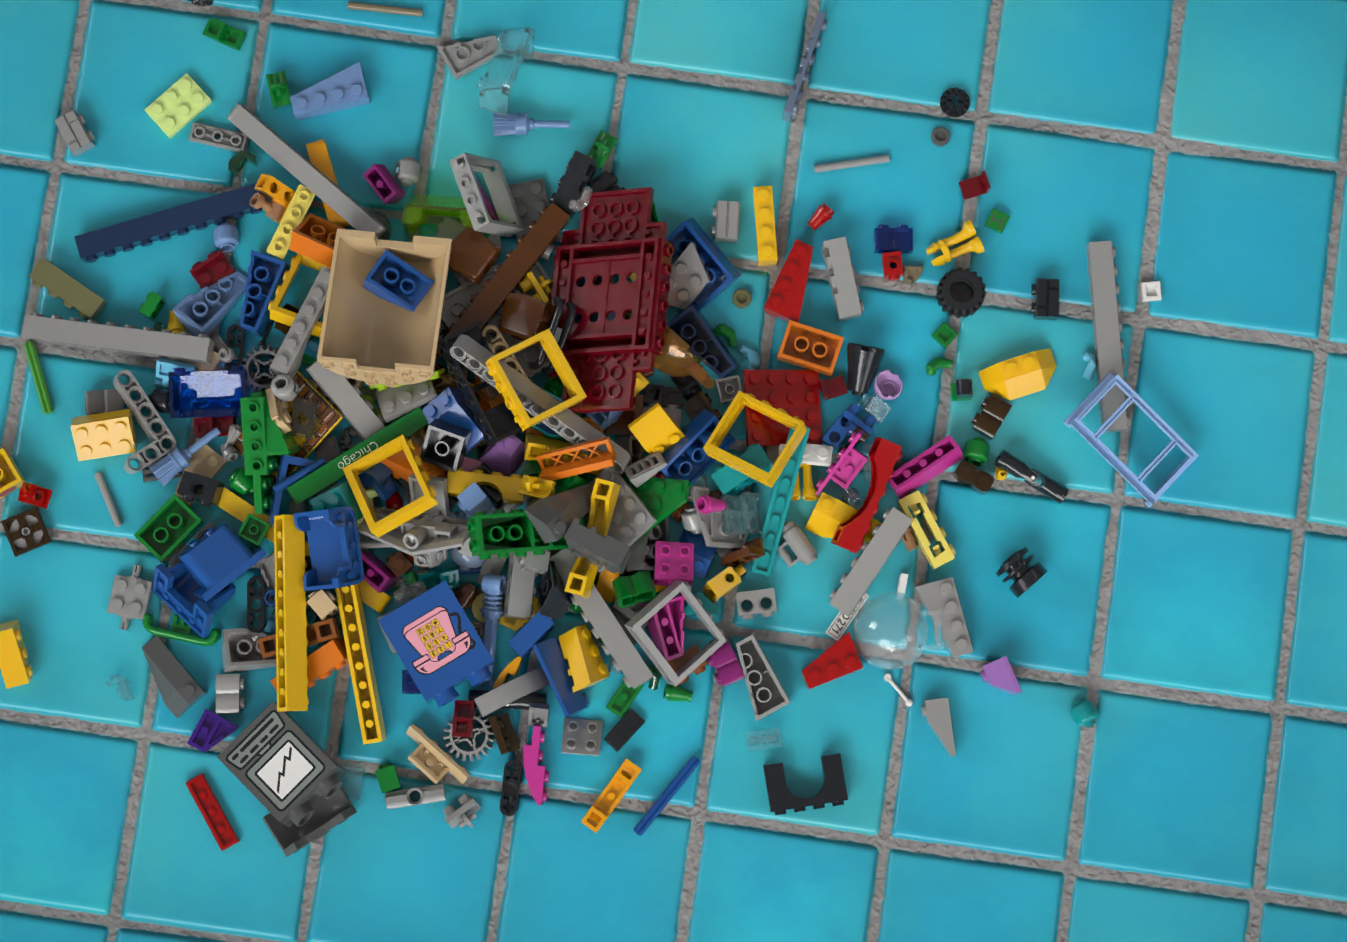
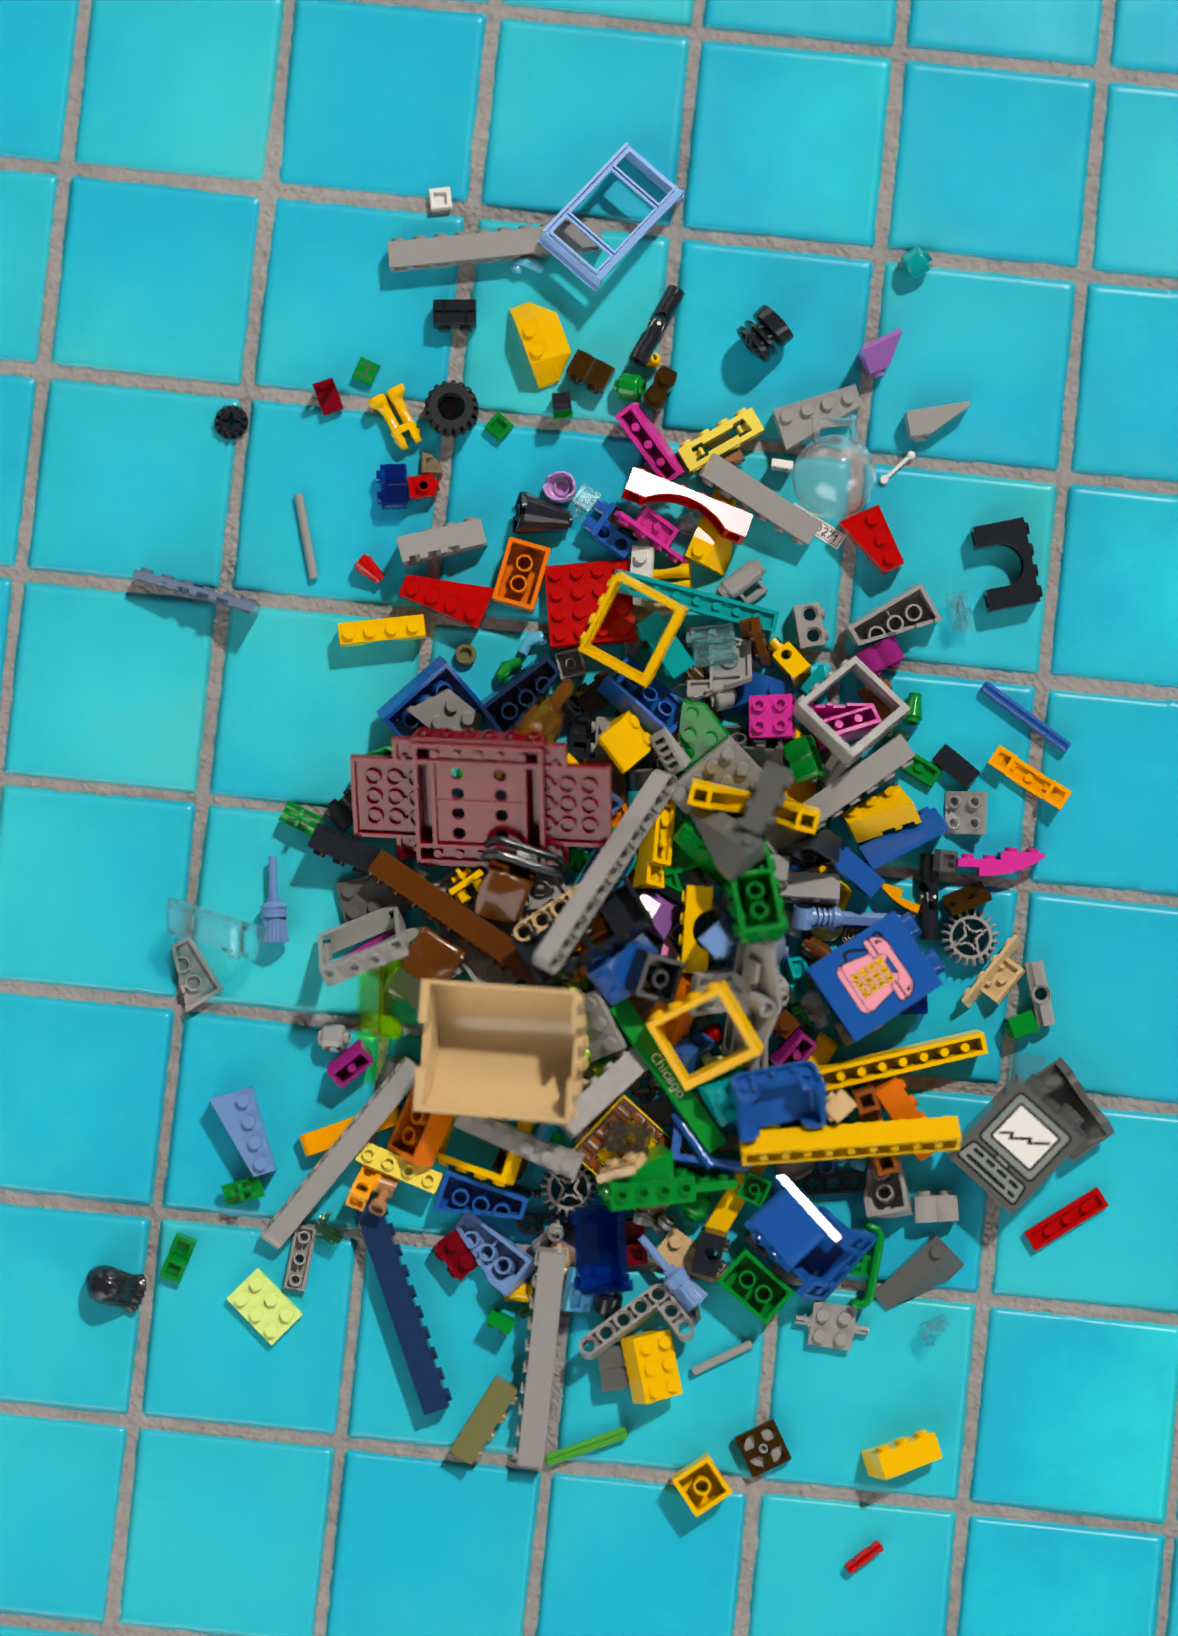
camera: 95 degrees left, 5 degrees up
(34, 495) = (722, 1440): red brick -> none
(74, 132) = (301, 1423): light grey brick -> none
(210, 731) = (977, 1225): dark purple wing -> none
(226, 237) = (417, 1241): medium blue head -> none
(284, 387) = (596, 1161): light grey head -> none
(385, 9) = (143, 1070): dark tan bar -> none
(397, 282) = (469, 1039): blue slope -> none
(463, 718) = (955, 942): dark red slope -> none
(464, 814) = (1060, 948): light grey hips -> none
(508, 773) = (1040, 884): black beam -> none
(511, 691) = (921, 891): light grey slope -> none
(536, 487) = (698, 870): yellow hips -> none
(559, 363) = (566, 846): yellow window -> none
(578, 205) = (365, 835): clear arm -> none
(581, 464) = (670, 825): orange fence -> none
(708, 504) = (708, 680): dark pink cone -> none
(726, 221) = (378, 674): light grey brick -> none
(833, 387) = (564, 548): dark red bracket -> none
(937, 363) = (532, 434): green arm -> none
(940, 136) = (271, 437): dark grey tile -> none

